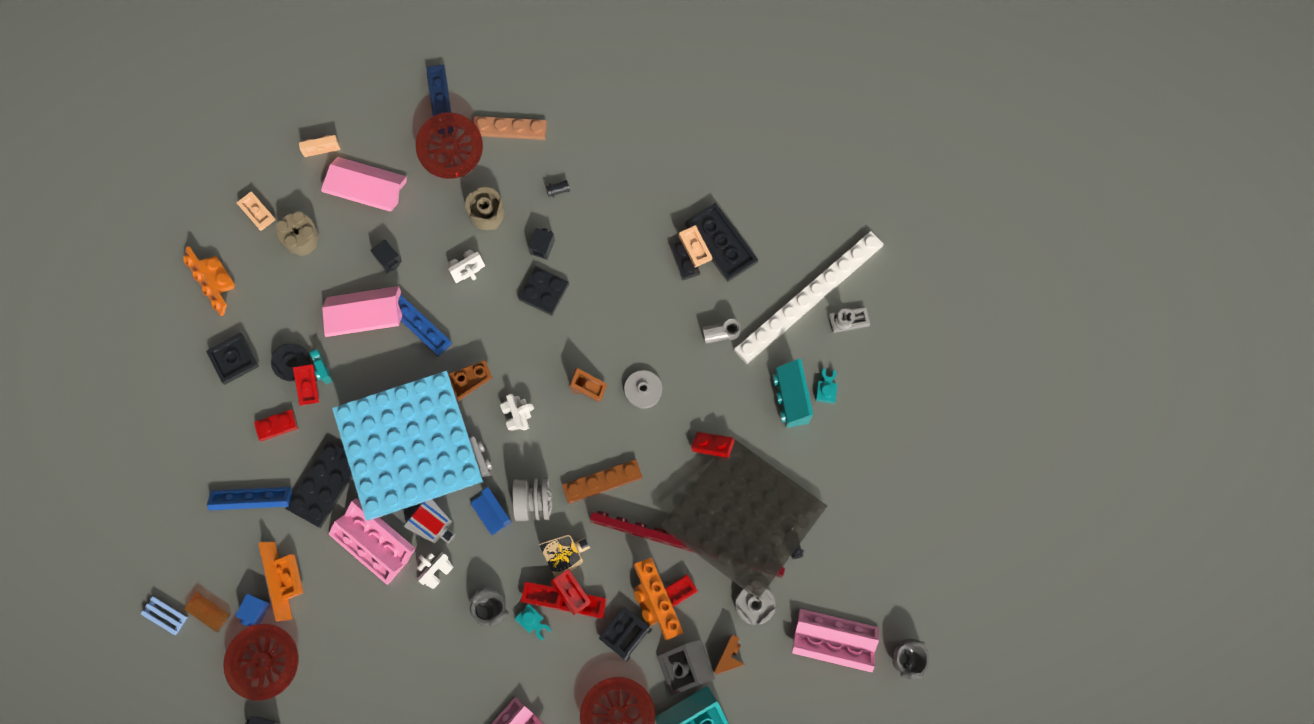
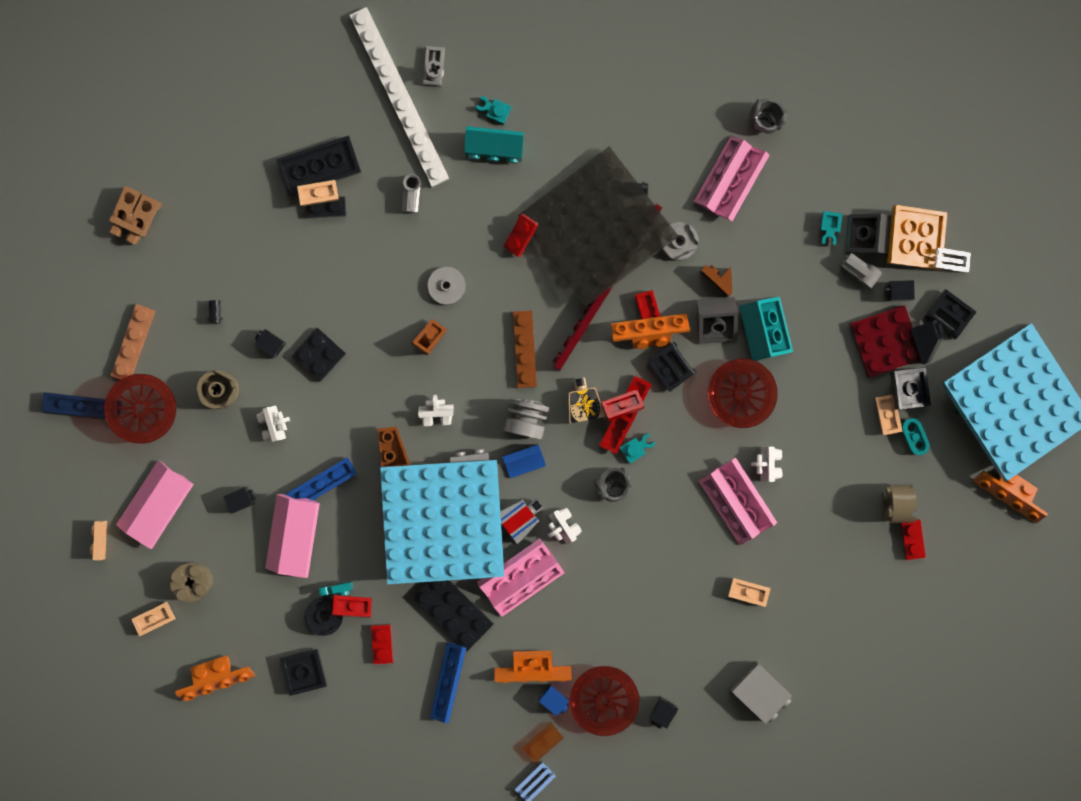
camera: 70 degrees left, 15 degrees up
(627, 96) = (134, 213): none -> medium nougat hips

